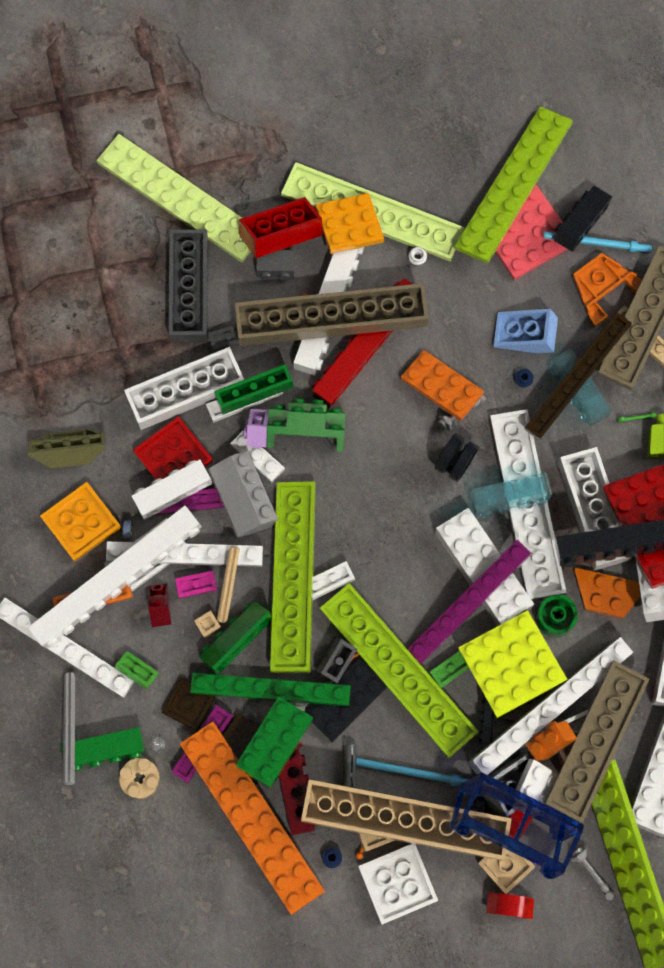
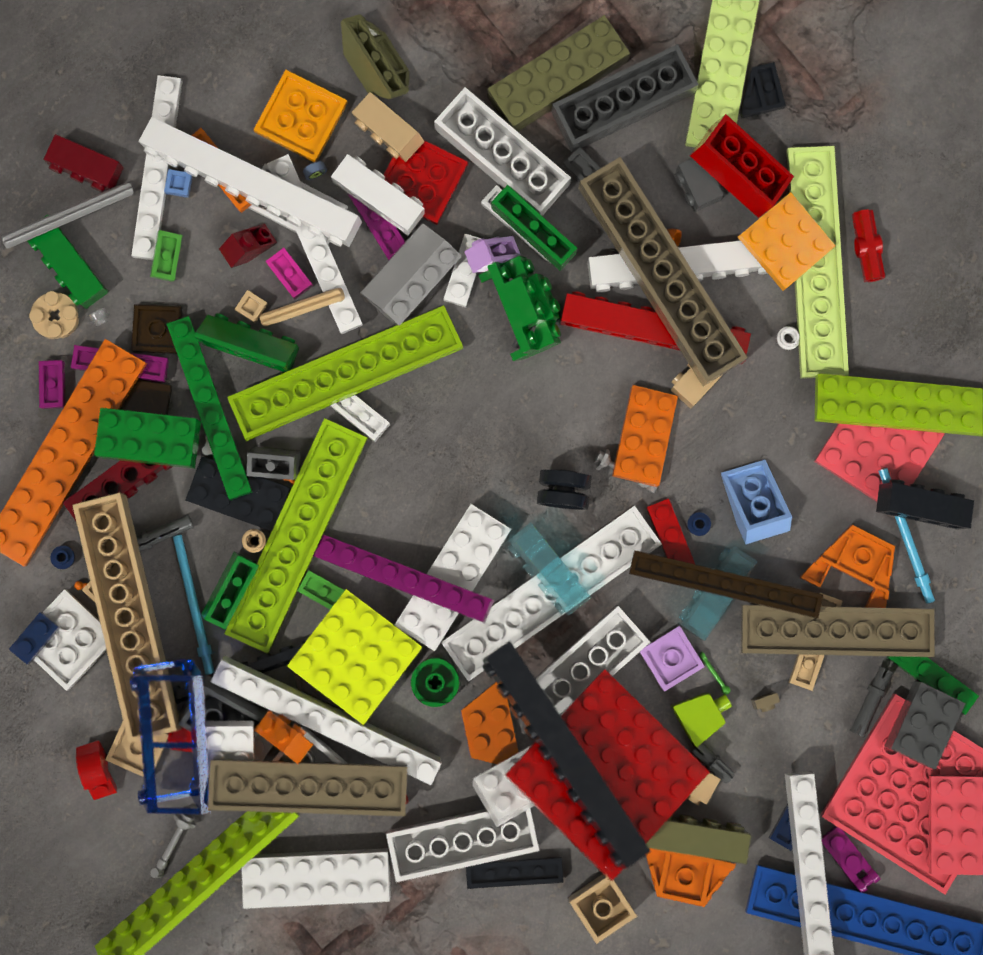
camera: 60 degrees right, 10 degrees up
(33, 701) = (82, 164): none -> dark red brick
(85, 635) = (178, 183): none -> medium blue plate
(123, 460) = (387, 127): none -> tan brick
(146, 323) = (558, 74): none -> olive brick
(192, 804) = (51, 384): none -> magenta plate
(231, 191) = (763, 91): none -> black wing
(378, 173) = (868, 245): none -> red piece
(386, 906) = (34, 638): none -> dark blue plate
(389, 695) = (249, 536): none -> tan cone
(418, 737) = (229, 590): none -> green brick
(421, 338) = (689, 388): none -> tan brick
(519, 401) = (669, 531): none -> red plate
(614, 441) = (671, 658): none -> lavender plate

